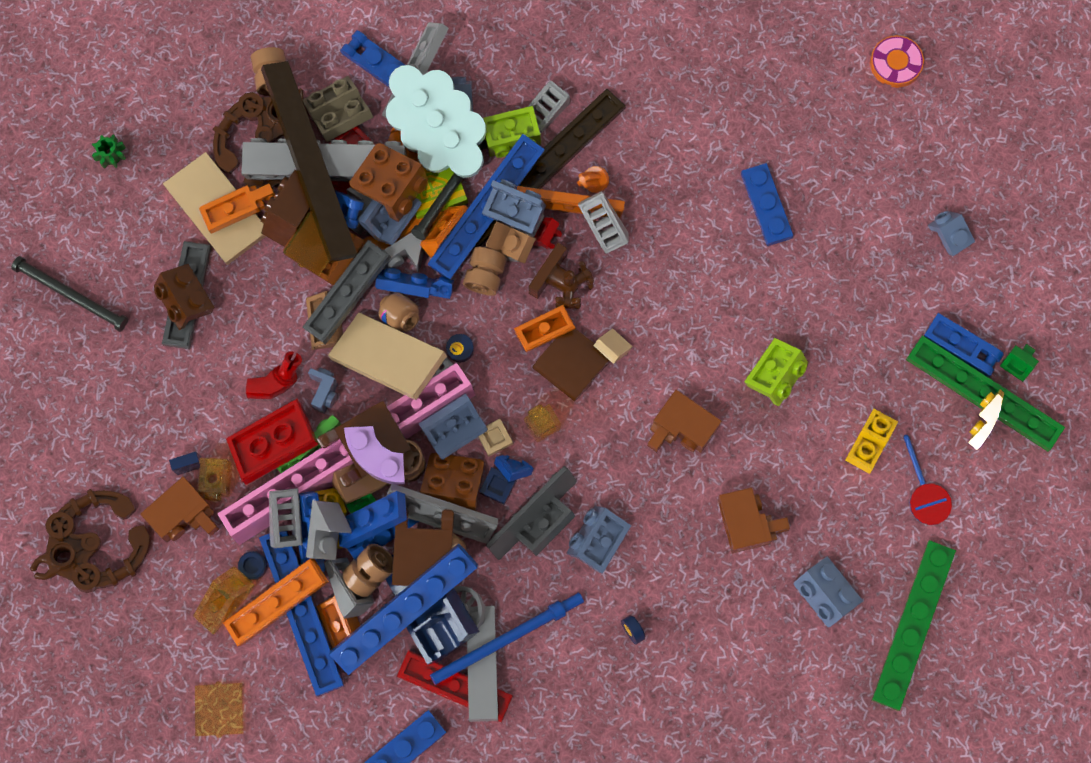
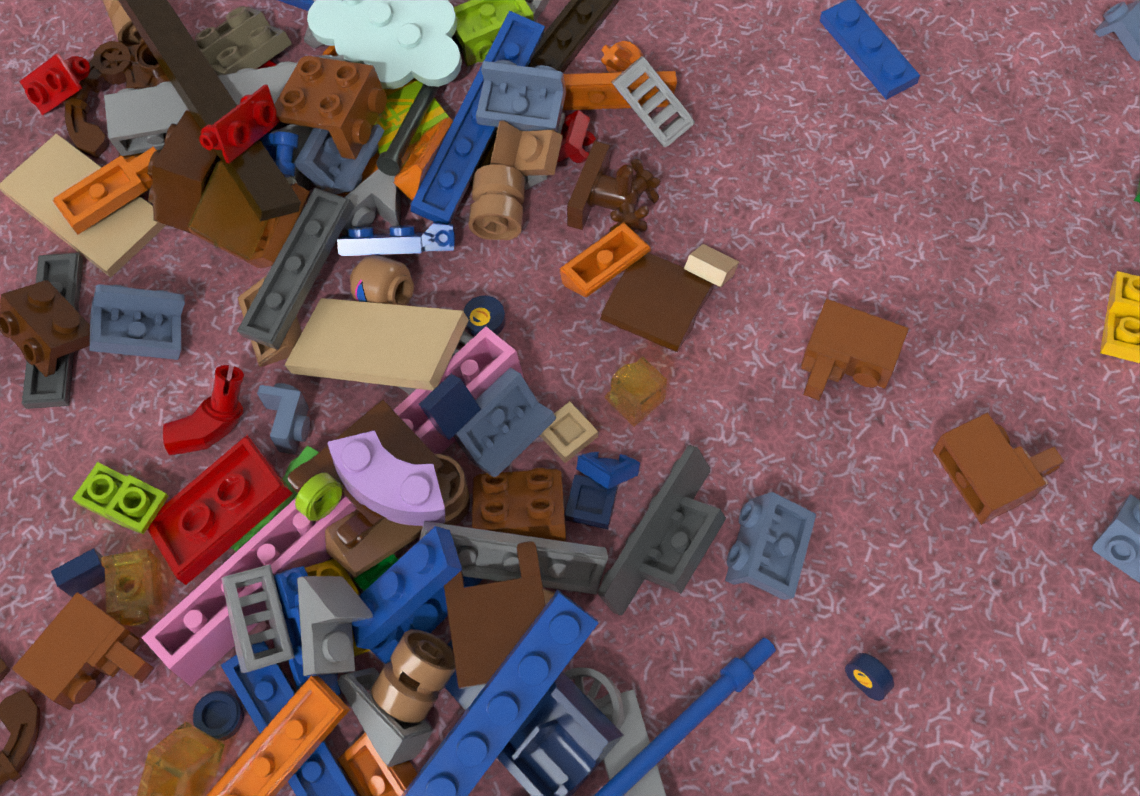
camera: 15 degrees left, 10 degrees down
(211, 118) = (55, 81): none -> red hinge
(214, 420) = (120, 498): none -> lime slope
(240, 307) = (136, 322): none -> sand blue bracket
(333, 454) = (318, 496): none -> lime tile
(335, 188) = (241, 125): none -> red hinge
(422, 414) = (450, 406): none -> dark blue tile
(777, 371) = (961, 249): lime bracket -> none

